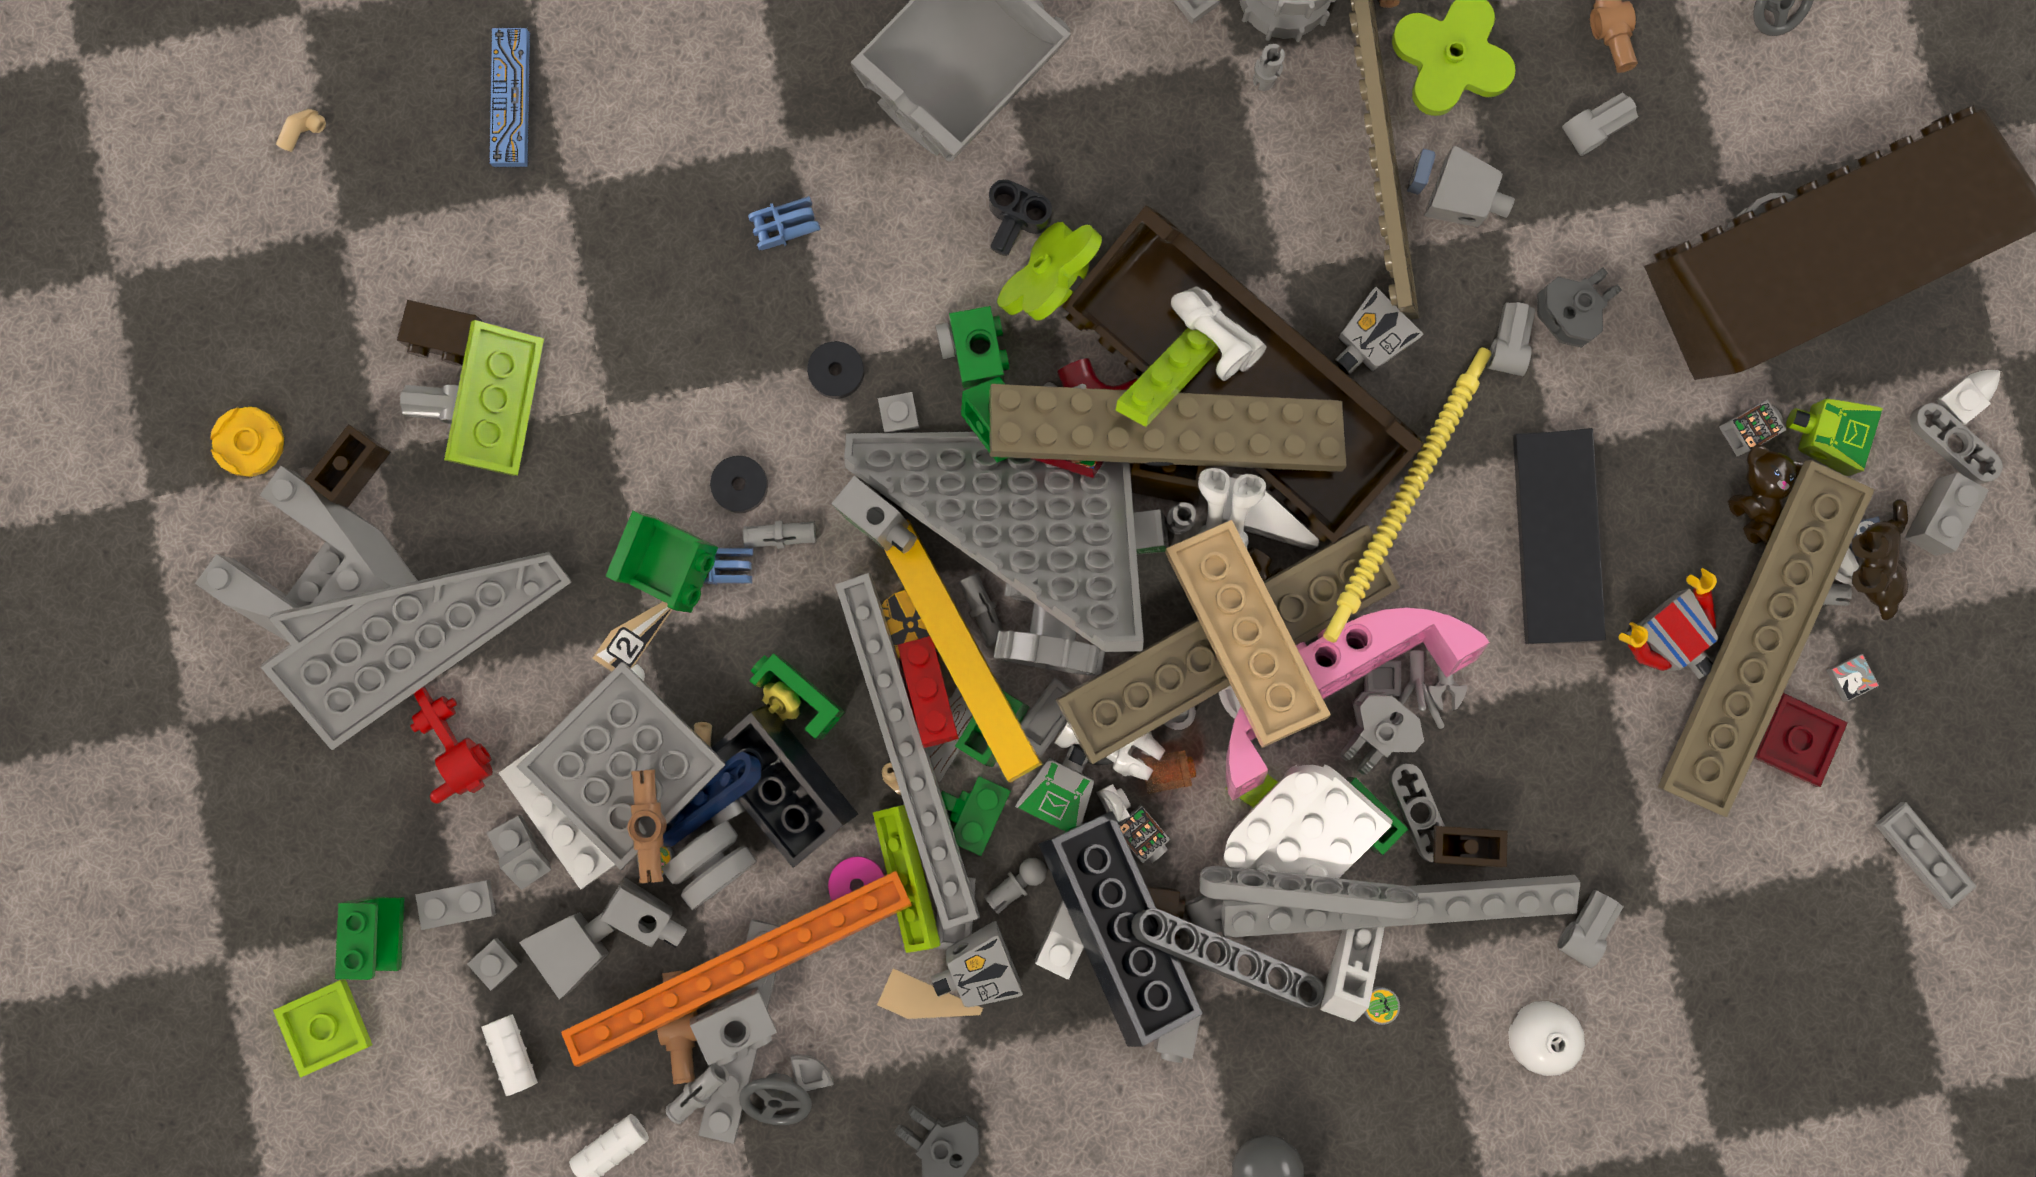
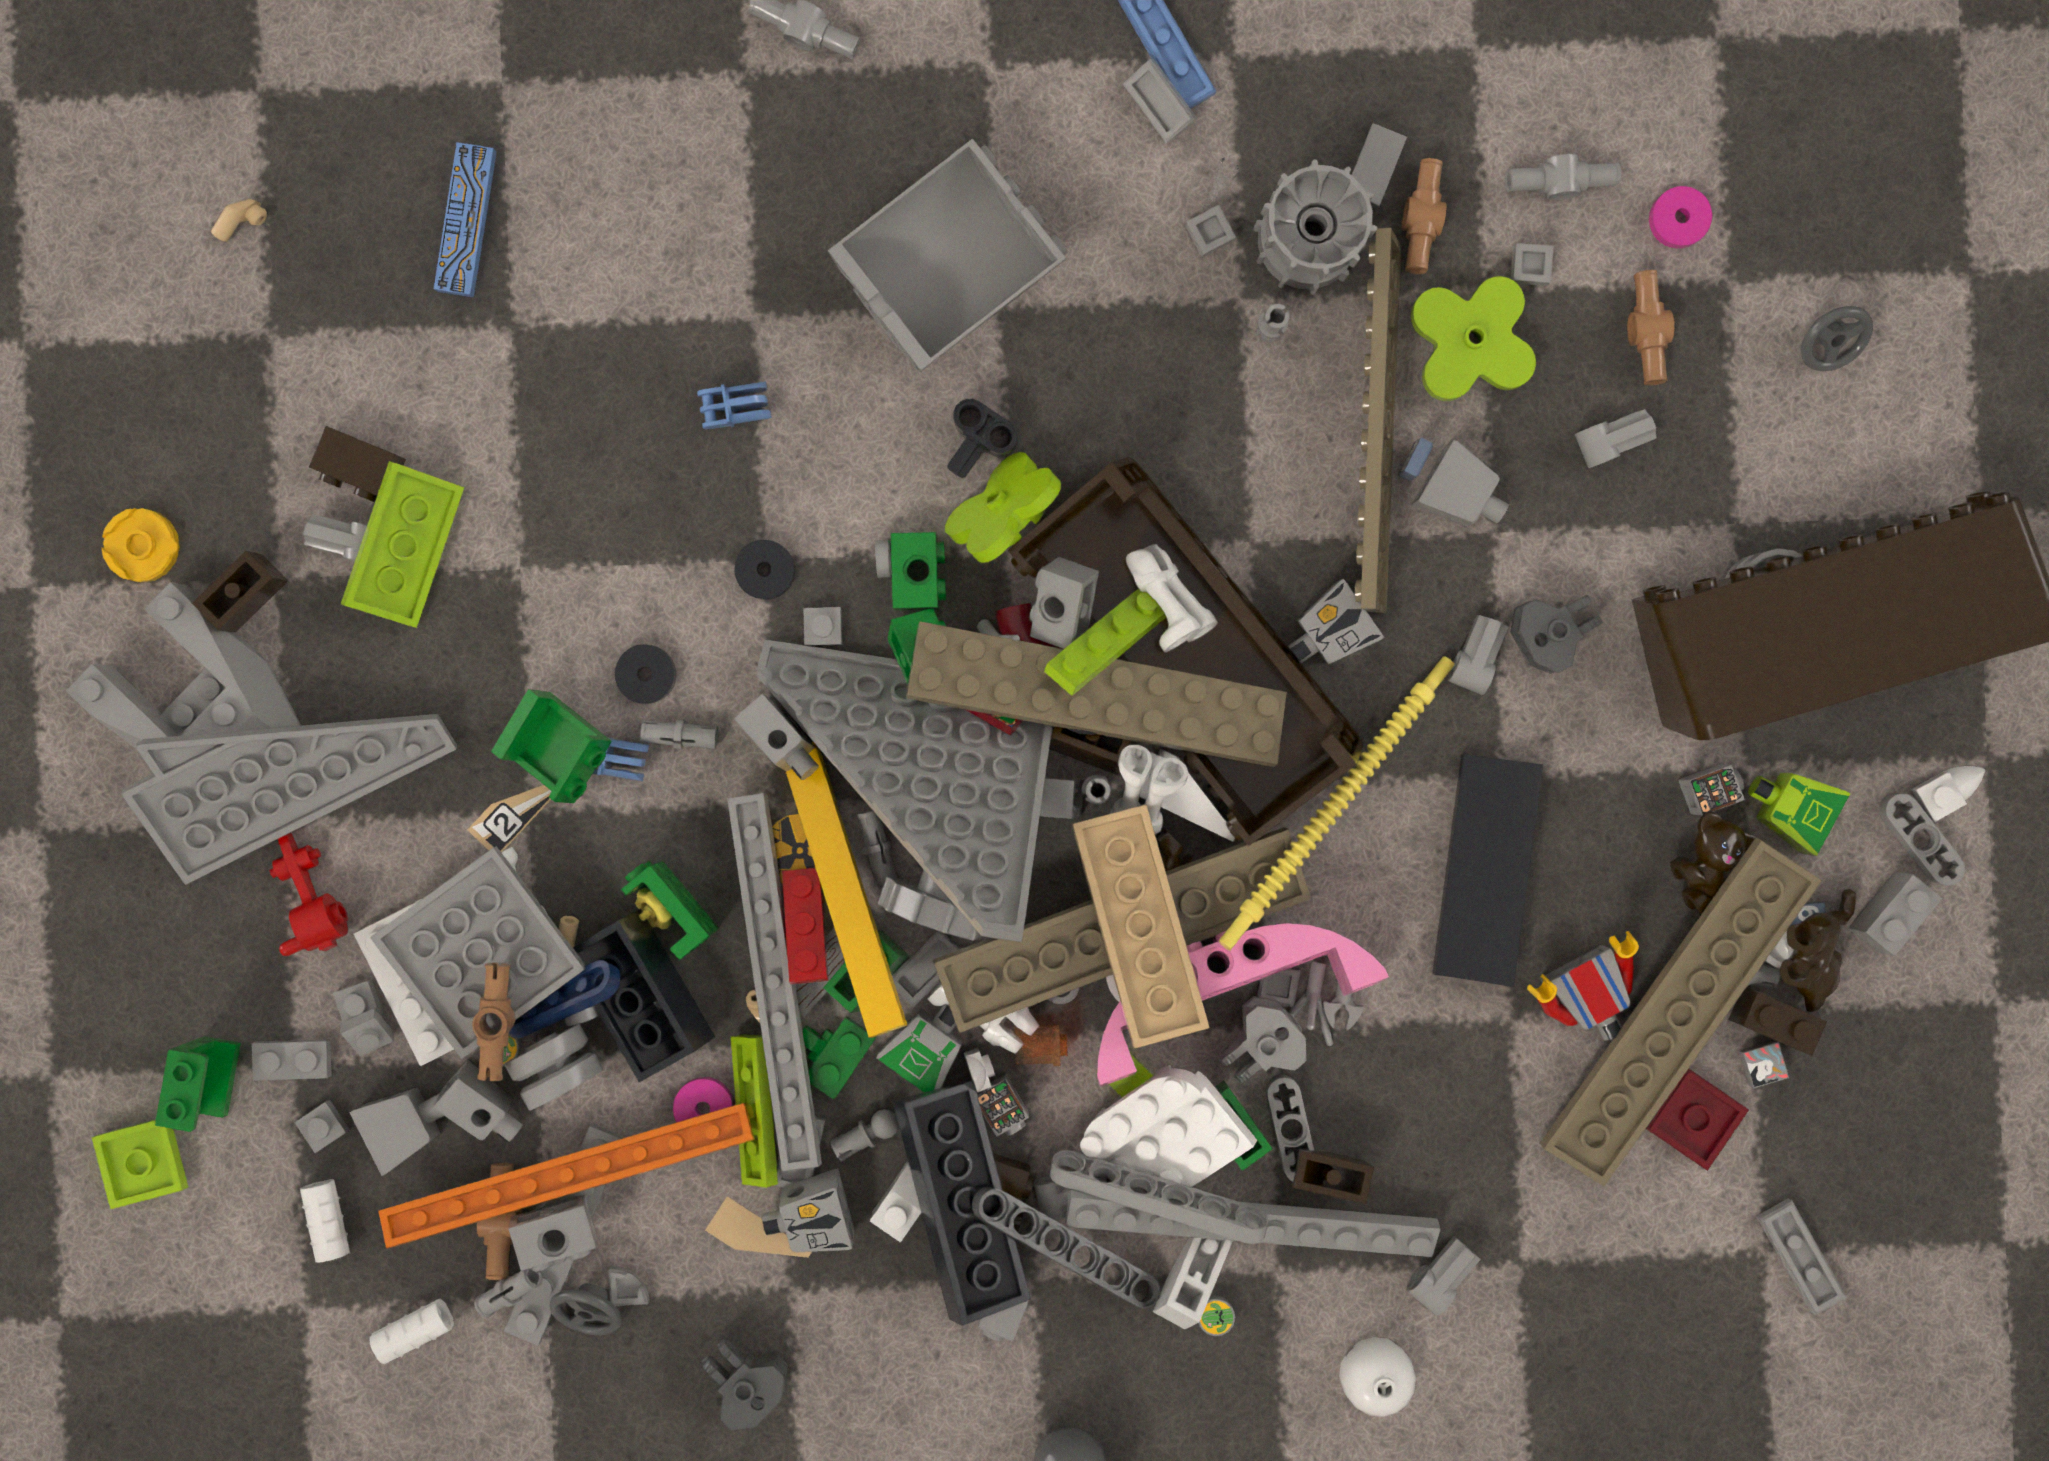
camera: 15 degrees right, 5 degrees up
(1129, 330) = (1076, 589): none -> light grey brick
(1858, 632) = (1778, 1021): none -> dark brown brick

